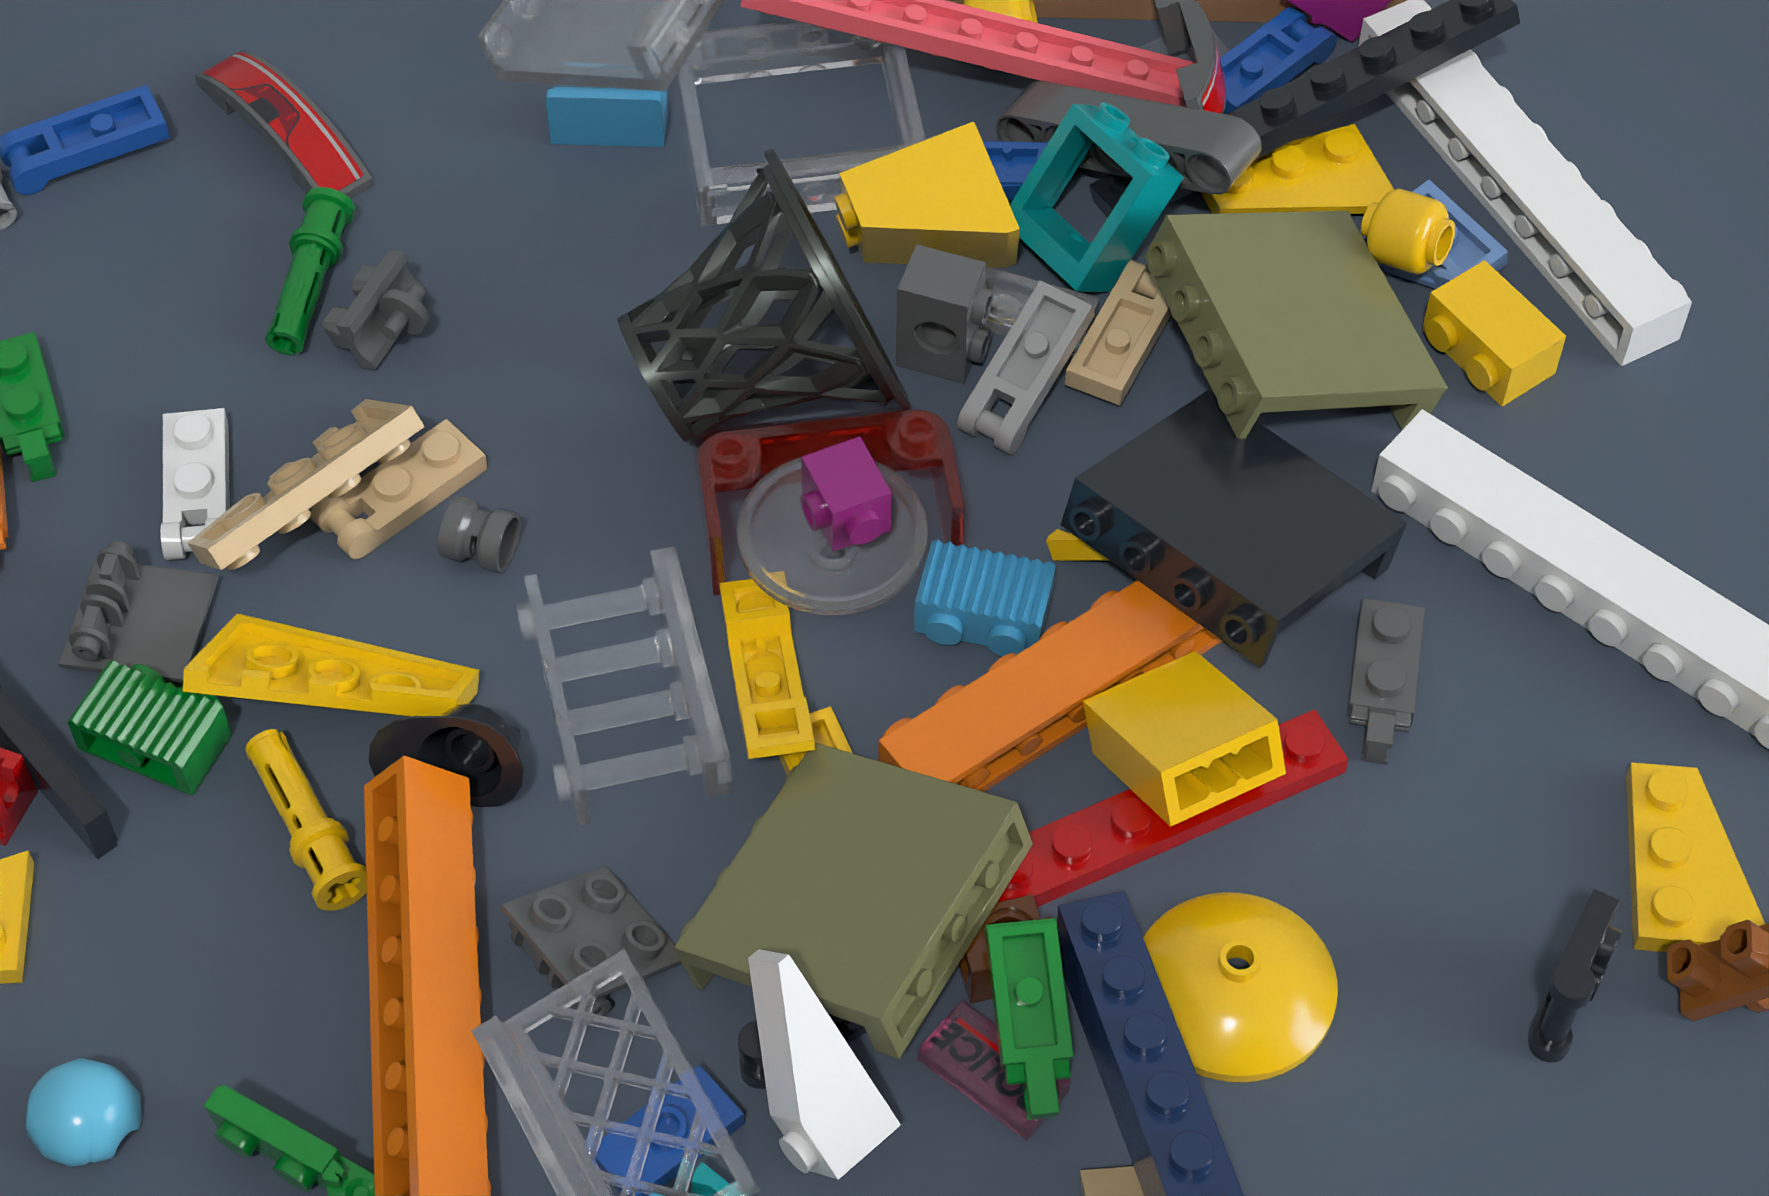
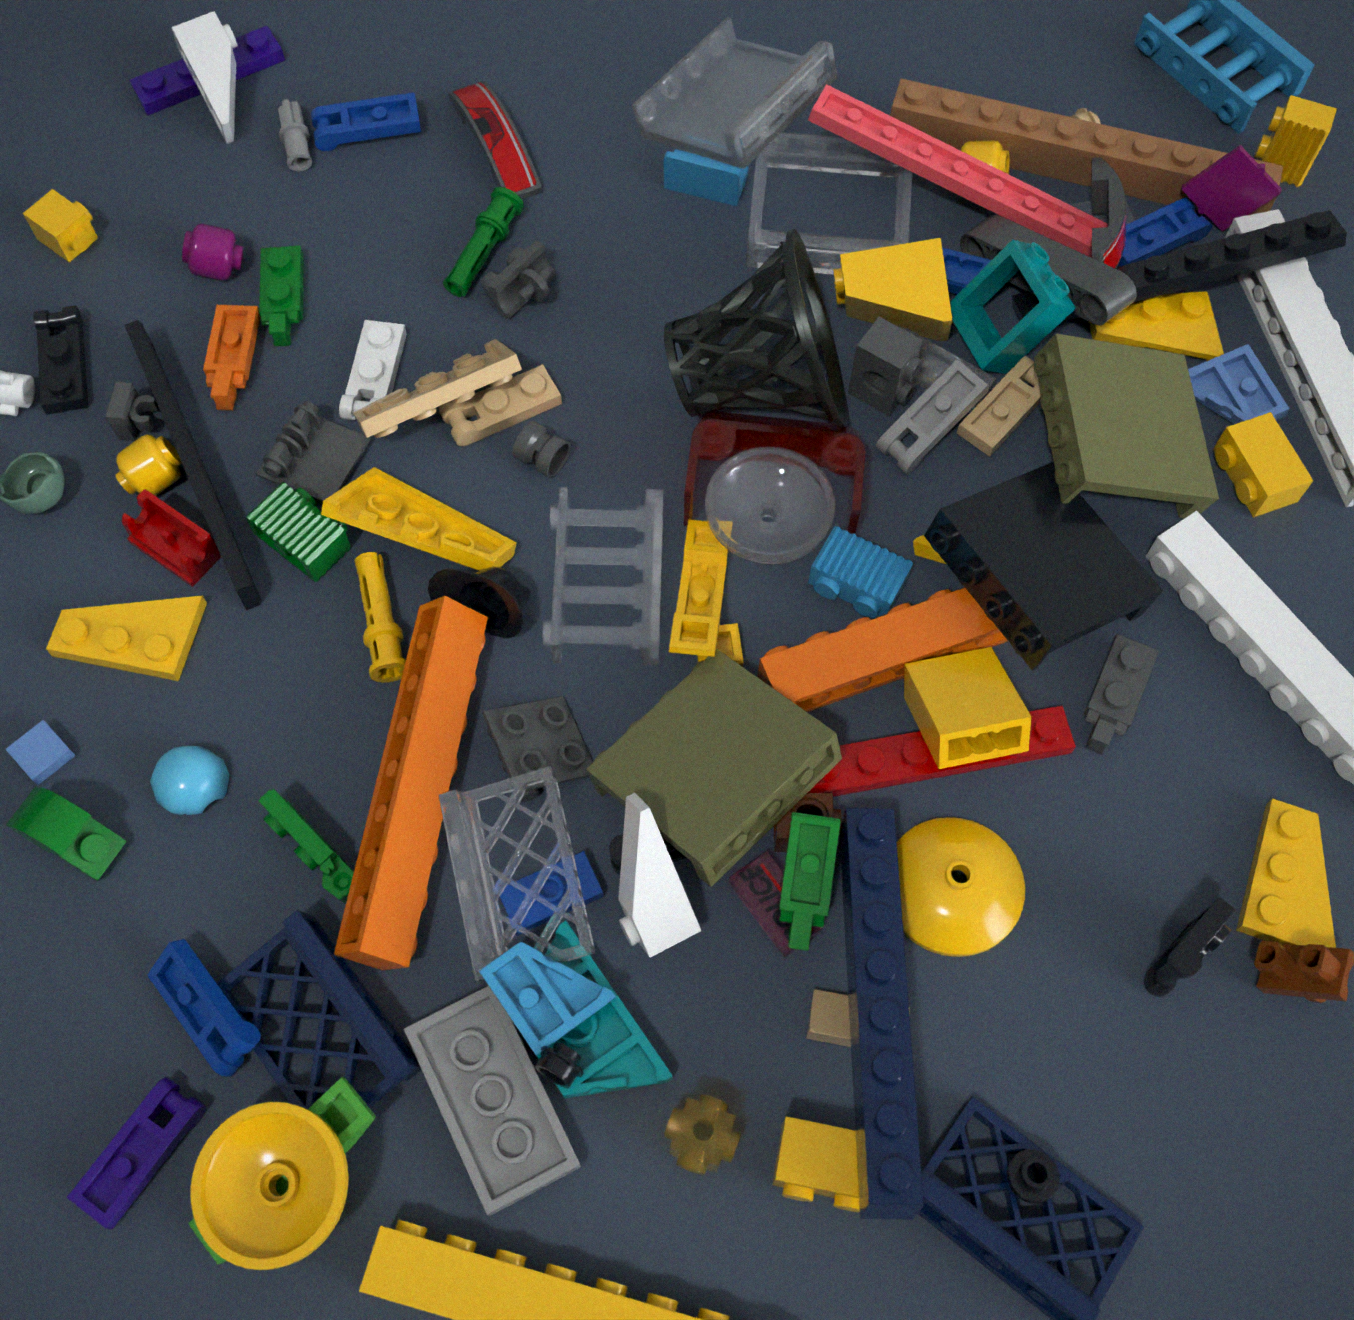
camera: 15 degrees right, 10 degrees up
(845, 495) = (783, 482): magenta brick -> none
(1408, 231) = (1222, 379): yellow head -> none

